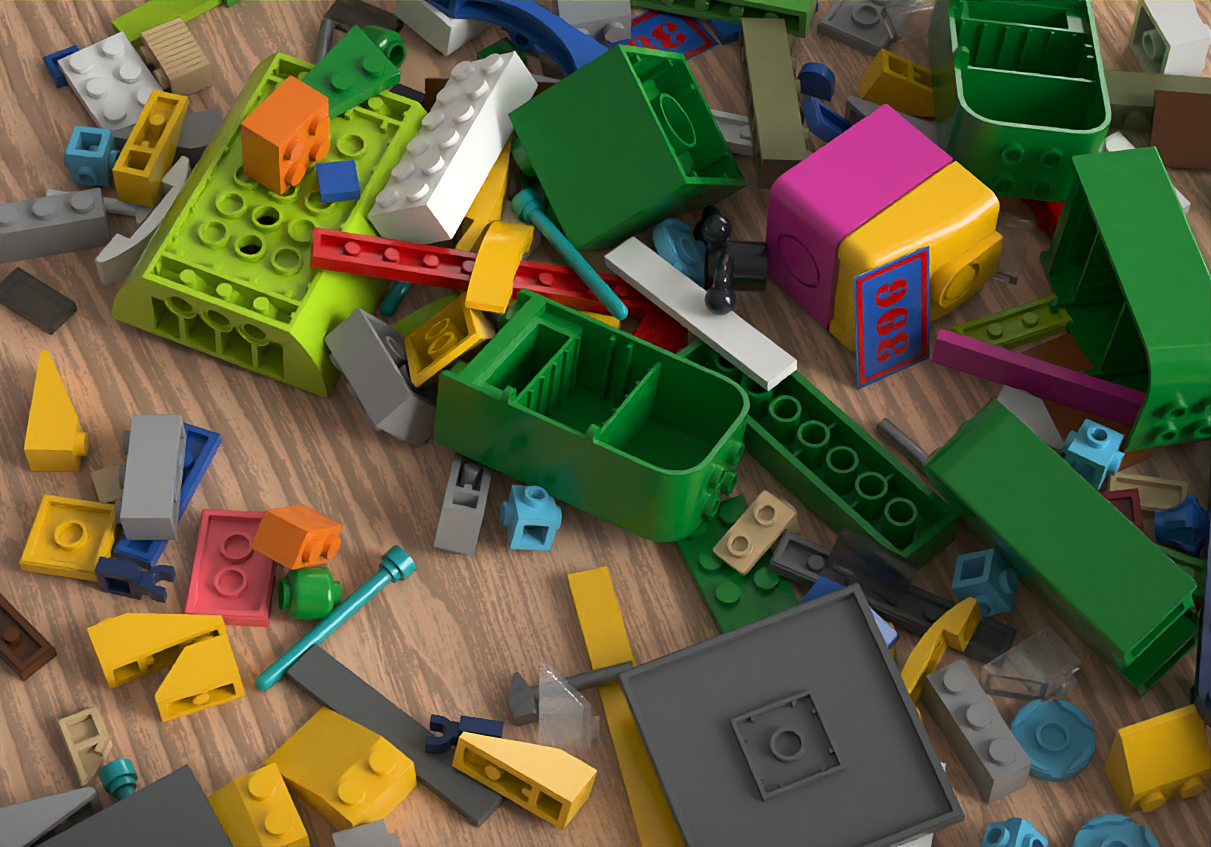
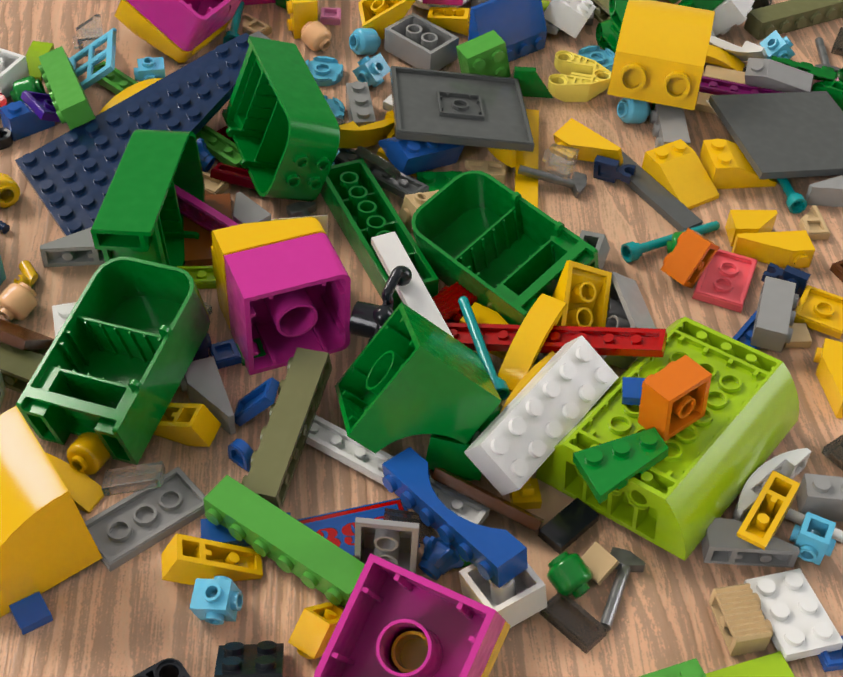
camera: 165 degrees left, 10 degrees down
(1095, 447) = (226, 182): medium azure brick -> none

